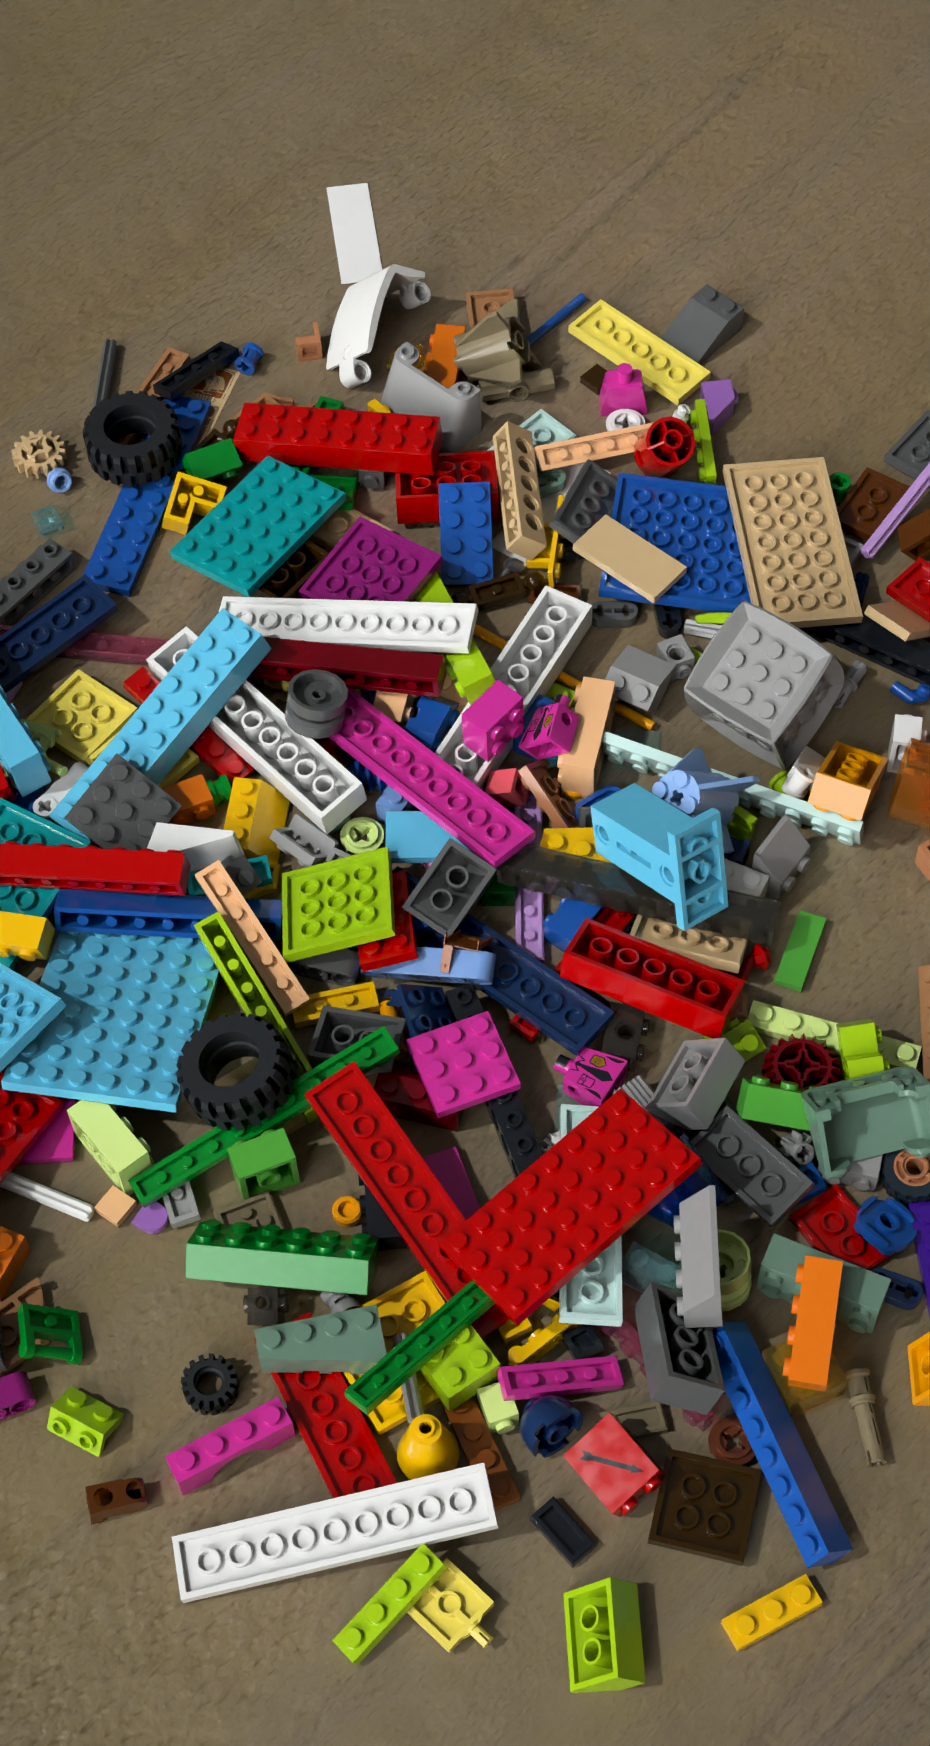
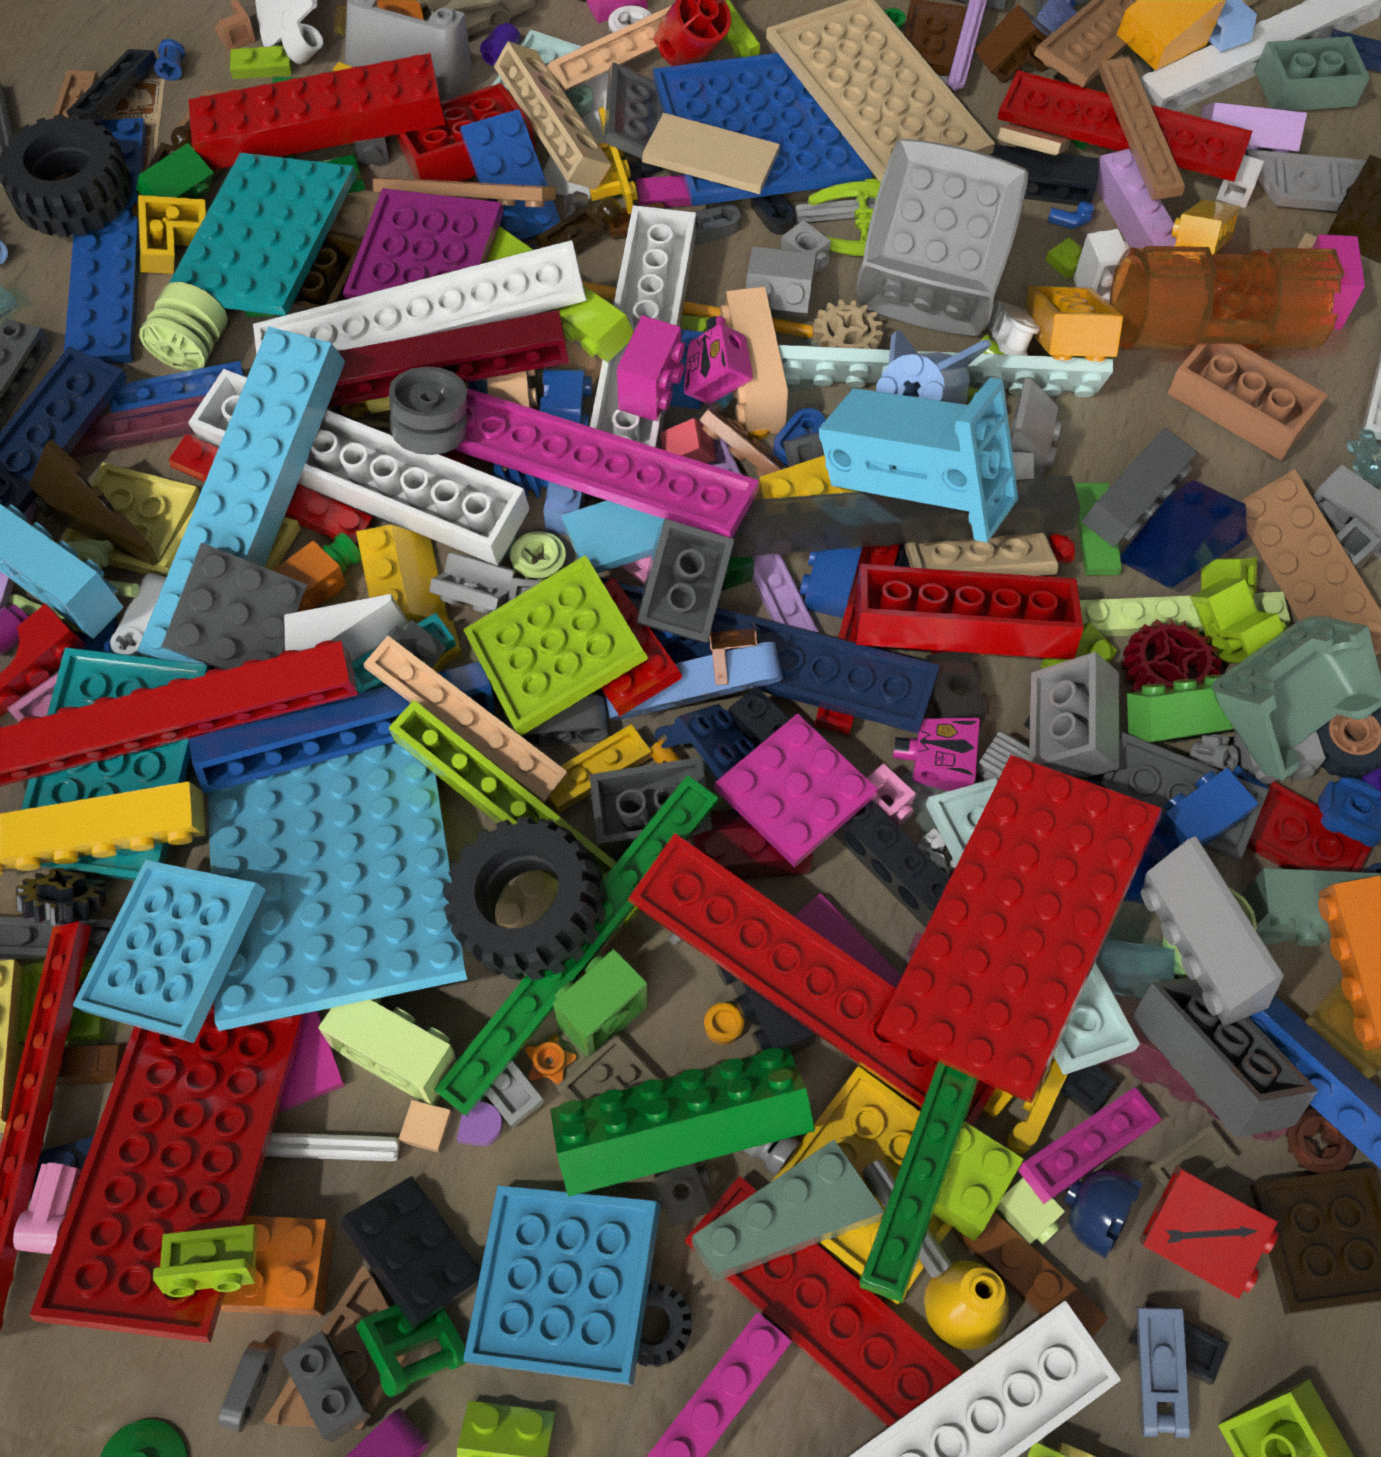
camera: 25 degrees left, 5 degrees up
(49, 697) = (77, 505): none -> dark brown wedge
(73, 1279) = (412, 1250): none -> black plate
(149, 626) = (169, 387): none -> blue plate
(161, 1334) = (564, 1284): none -> dark azure plate
(173, 582) = (183, 326): none -> yellowish green wheel
(211, 1188) = (553, 1050): none -> orange plate
(317, 378) = (260, 62): none -> lime plate
(429, 537) = (504, 193): none -> medium nougat plate
(514, 412) = (496, 41): none -> dark purple brick
(535, 1087) = (894, 791): none -> bright pink brick
(537, 1540) = (1162, 1370): none -> sand blue plate
(583, 574) = (662, 189): none -> dark pink tile
(676, 732) = (847, 327): none -> tan gear
(756, 1181) = (1210, 809): none -> blue brick
(843, 928) = (1139, 487): none -> dark grey brick
(862, 977) = (1187, 534): none -> clear blue slope
(884, 725) = (1065, 257): none -> lime plate
(889, 1018) = (1234, 567): none -> lime panel

